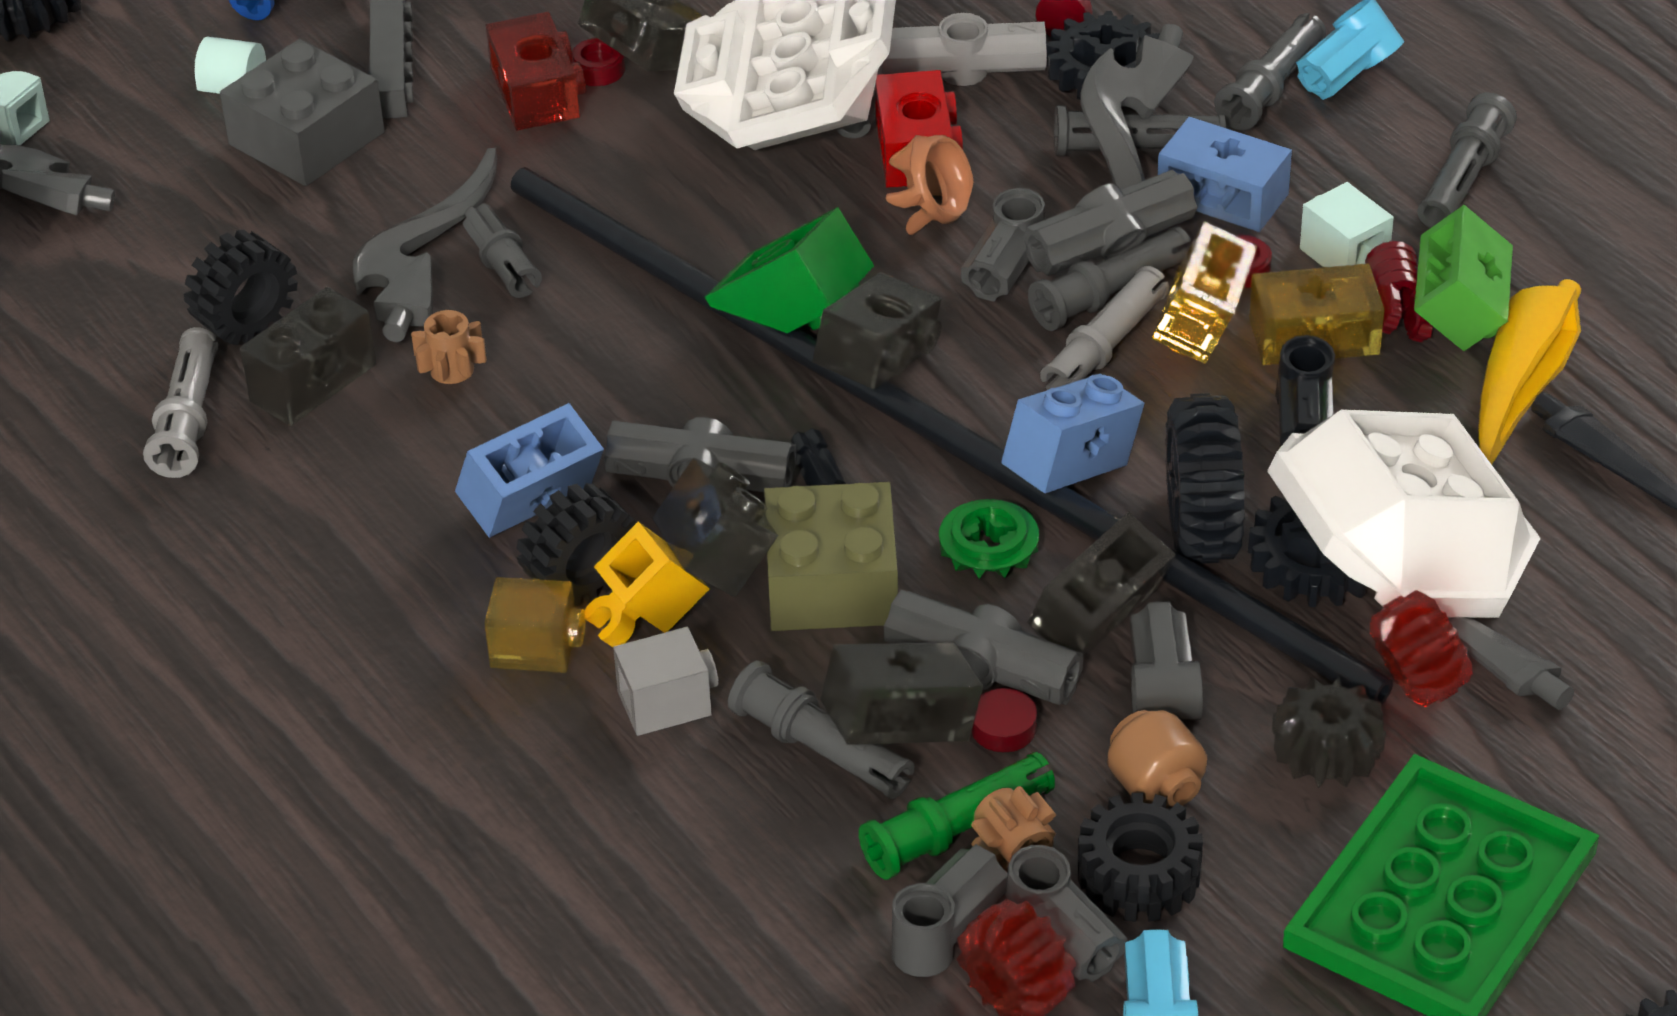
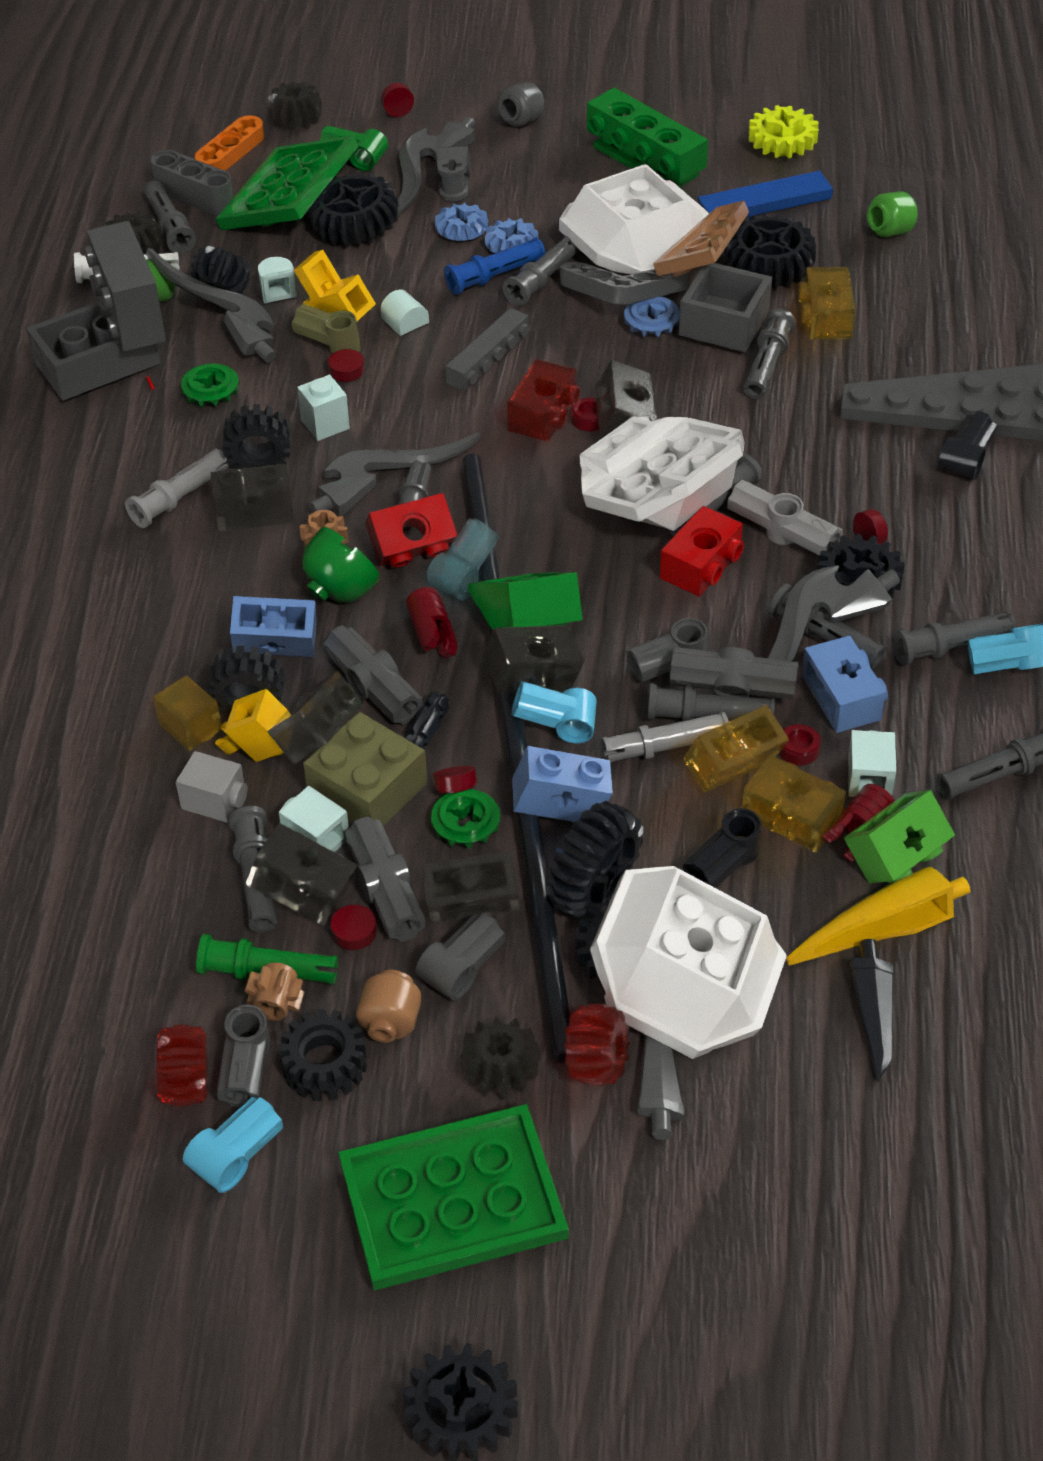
camera: 40 degrees right, 5 degrees up
(88, 257) = (197, 381): none -> green gear
(120, 93) = (329, 291): none -> yellow brick
(174, 125) = (334, 329): none -> olive piece
(225, 160) = (346, 365): none -> dark red tile
(274, 207) = (323, 407): none -> light aqua brick
(302, 112) = (402, 358): dark grey brick -> none
(524, 365) = (336, 569): none -> green cylinder
(560, 282) = (427, 514): none -> red brick
(661, 289) = (461, 563): none -> clear light blue piece
(698, 366) = (431, 621): none -> dark red hinge
(821, 626) = (316, 818): none -> light aqua brick
(932, 504) = (455, 779): none -> dark red tile
(935, 168) = (682, 582): nougat piece -> none
(935, 913) = (195, 1007): dark grey piece -> none
(965, 367) = (568, 712): none -> medium azure piece

